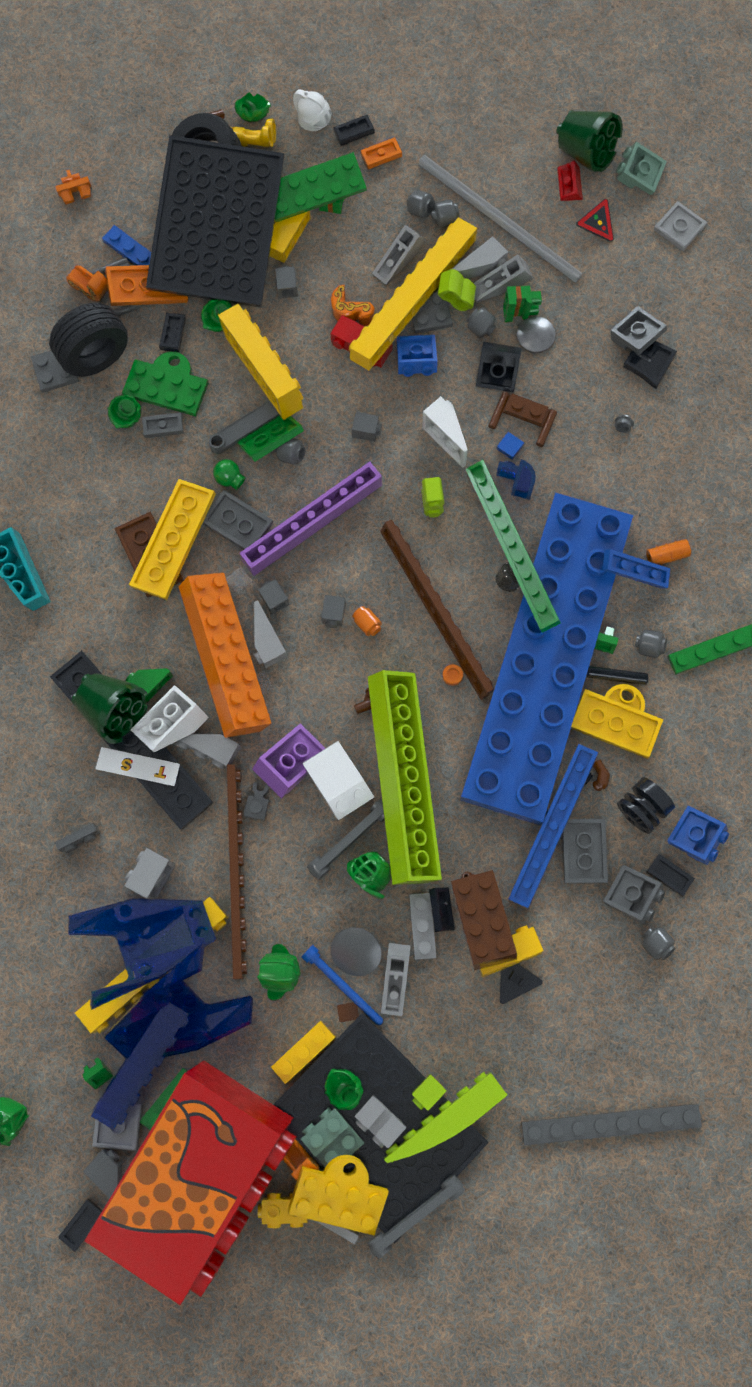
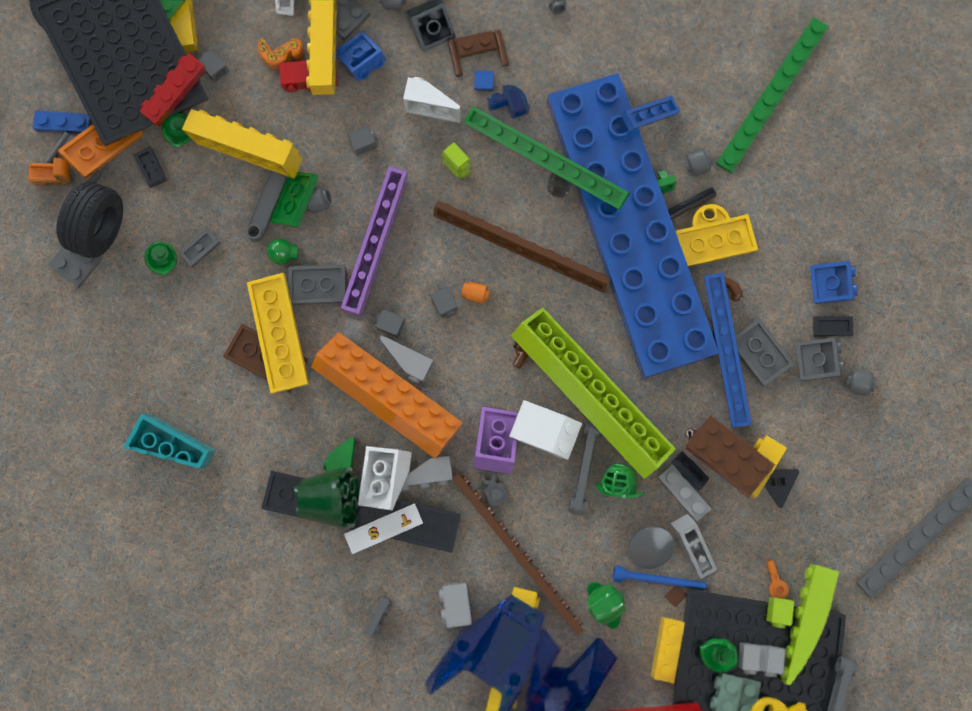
camera: 40 degrees left, 5 degrees up
(166, 384) = (176, 213): green plate -> none
(234, 278) = (173, 90): none -> red brick
(444, 1072) = (777, 588): none -> orange plate
(452, 675) = (569, 288): orange tile -> none
(645, 805) = (783, 287): black wheel -> none
(669, 552) = (662, 83): orange axle -> none

